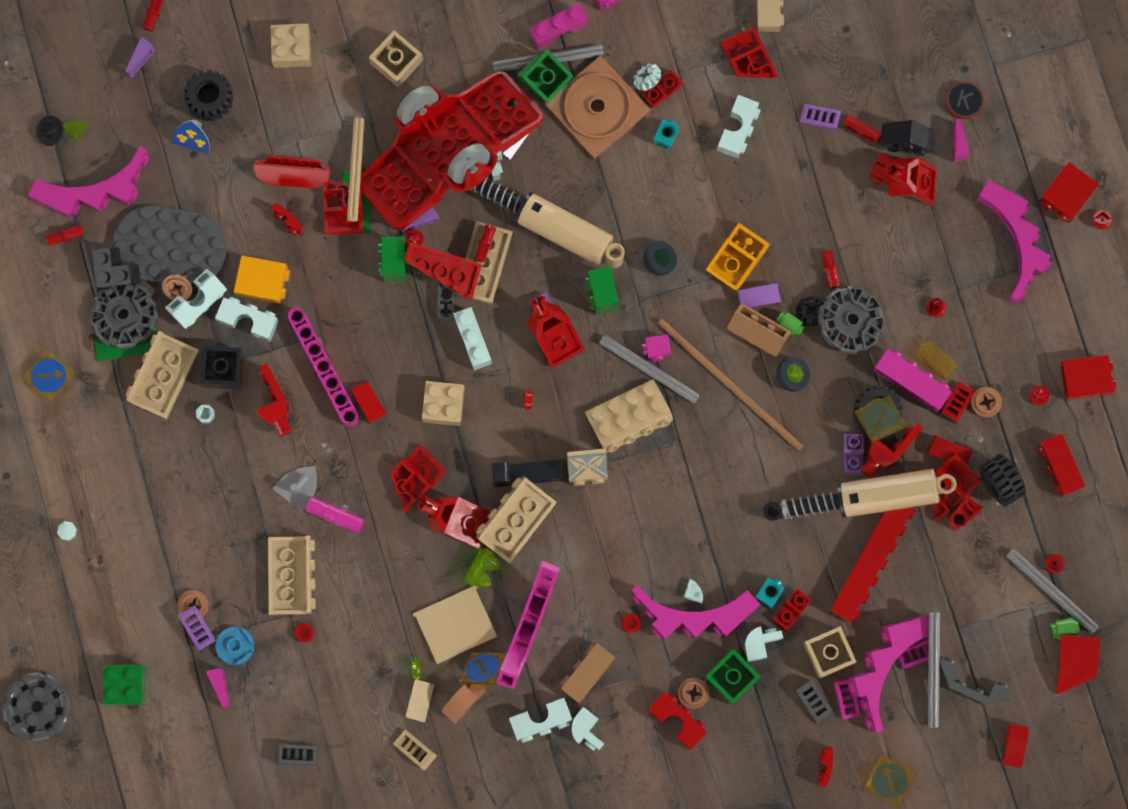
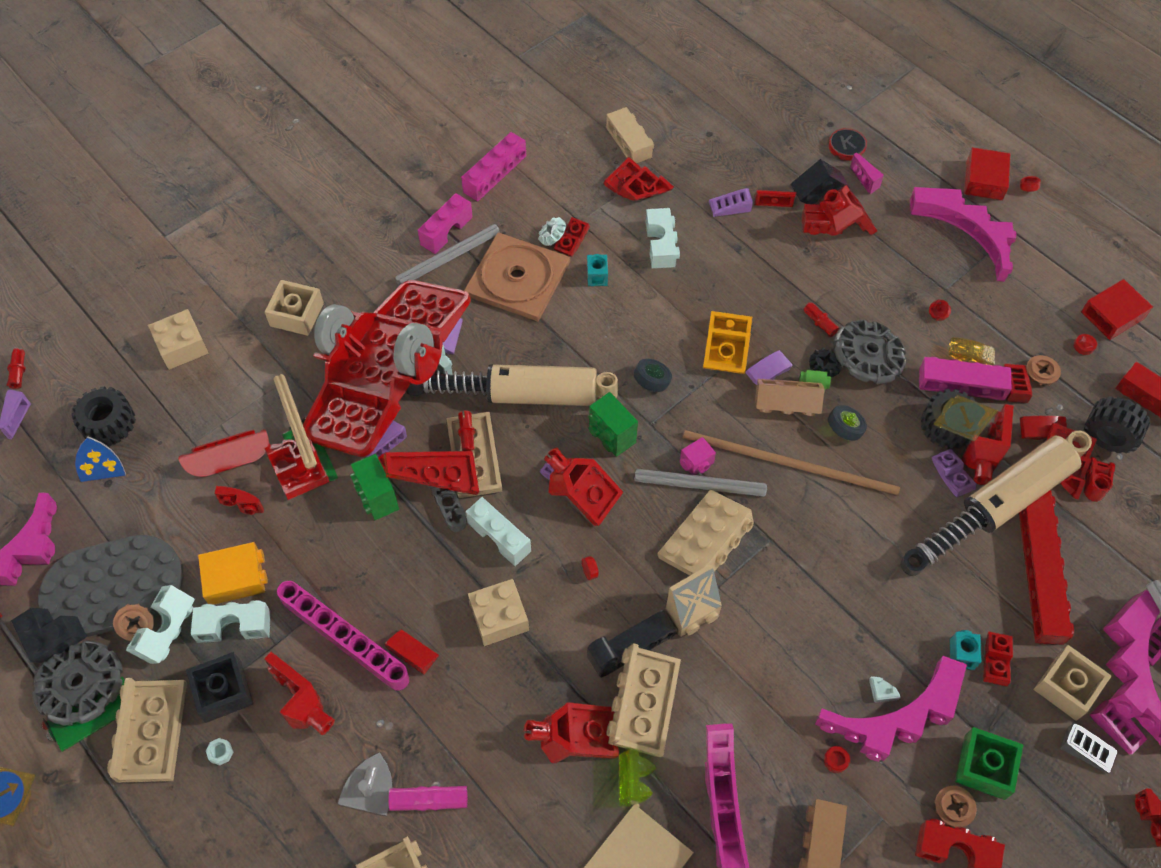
camera: 25 degrees left, 20 degrees down
(416, 476) = (505, 708): red slope -> none
(545, 75) = (453, 263): green brick -> none
(754, 643) = (987, 713): light aqua brick -> none

